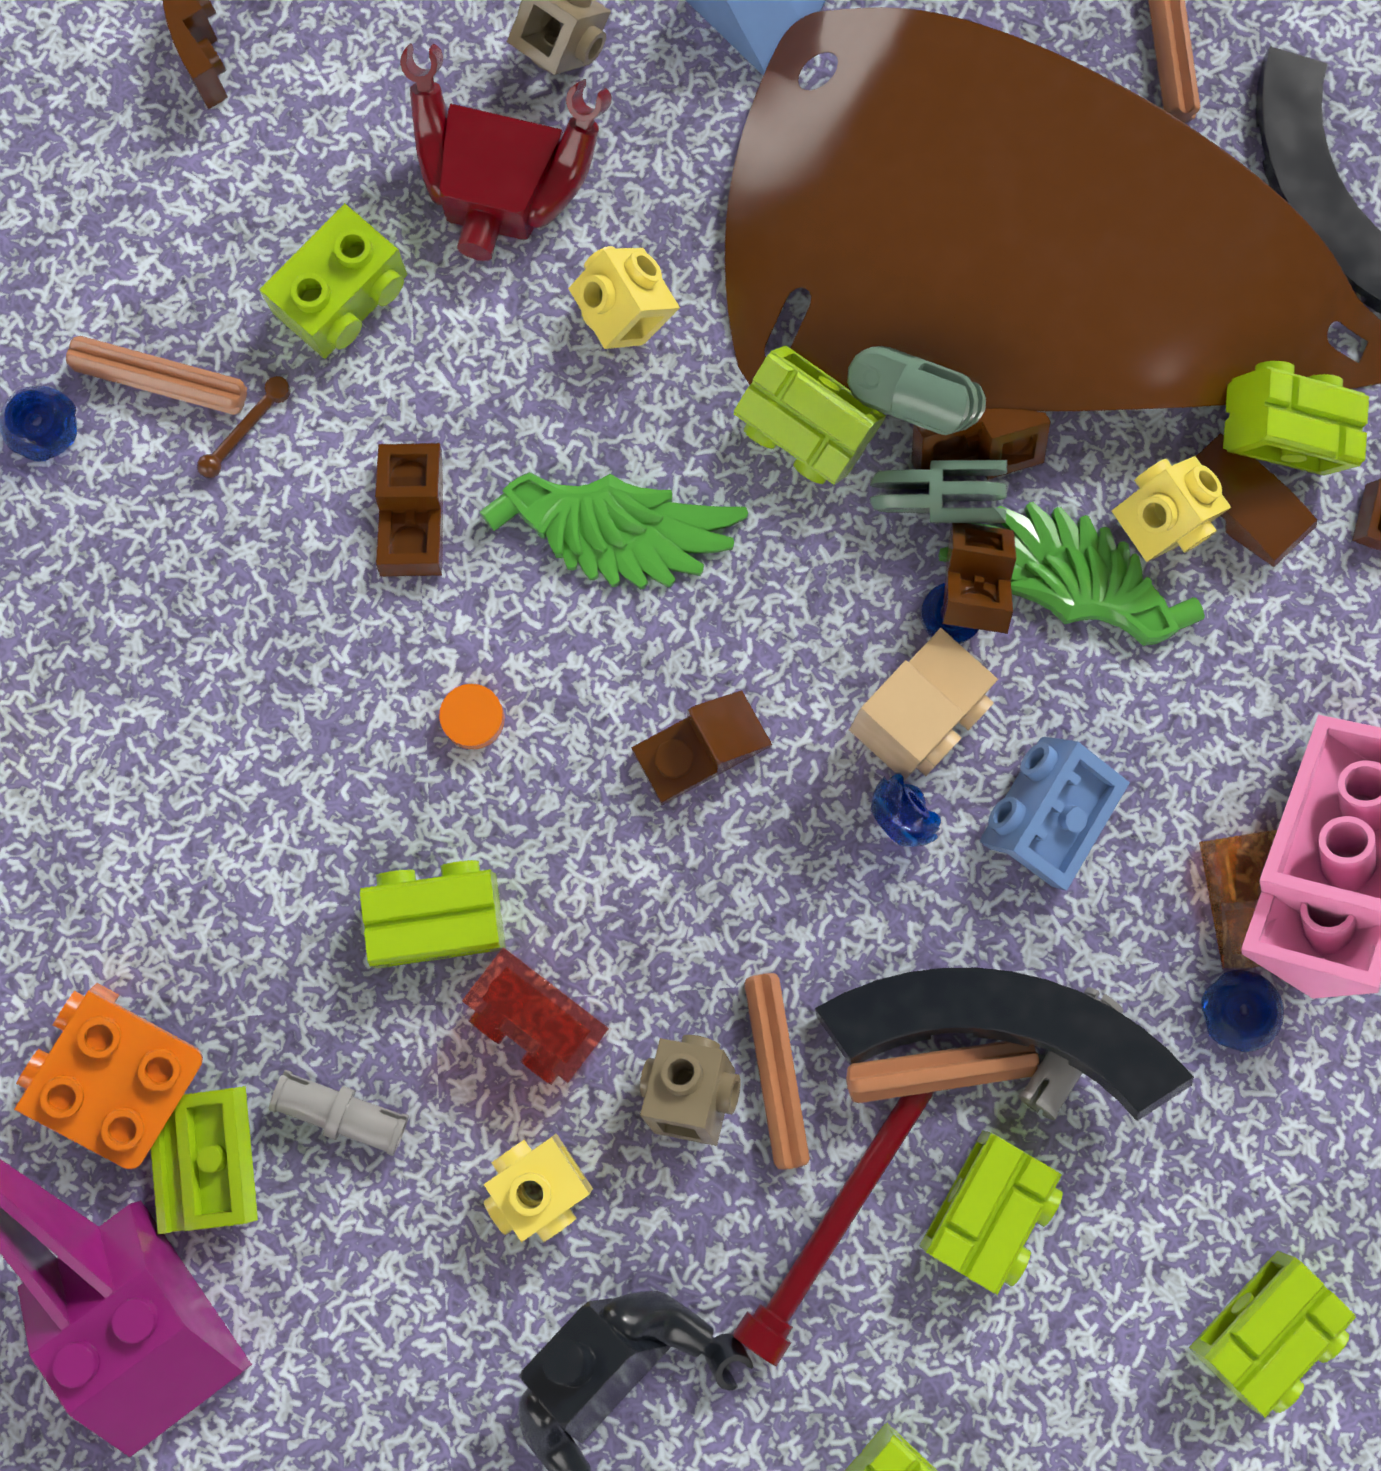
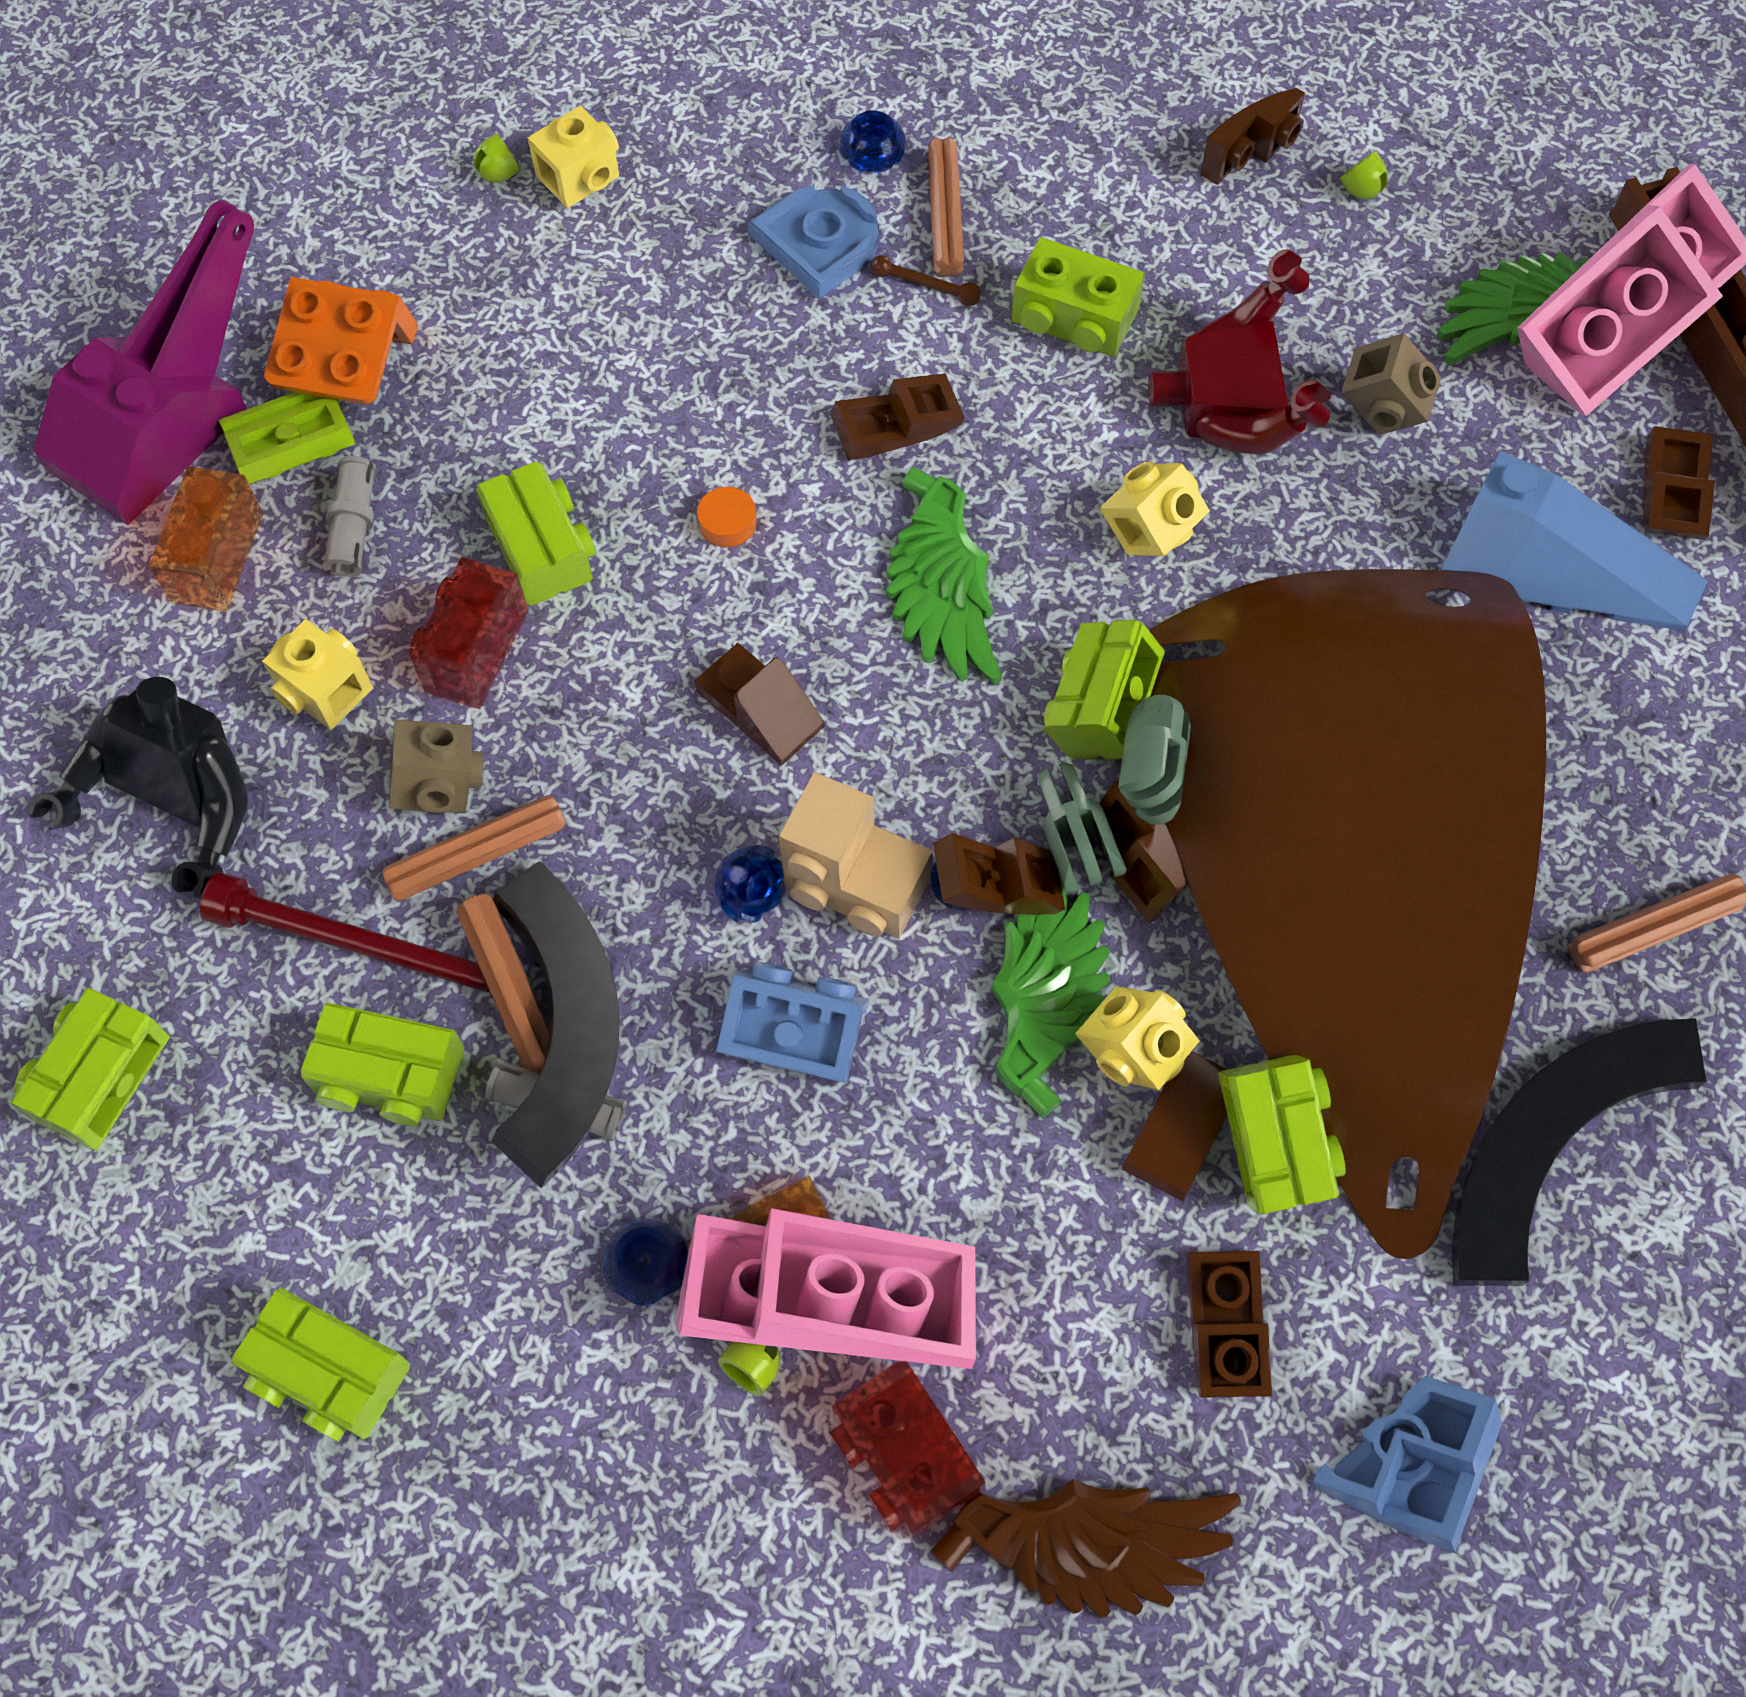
camera: 75 degrees right, 15 degrees down
(142, 517) = (819, 235): none -> medium blue tile
(321, 1276) = (206, 539): none -> clear orange brick

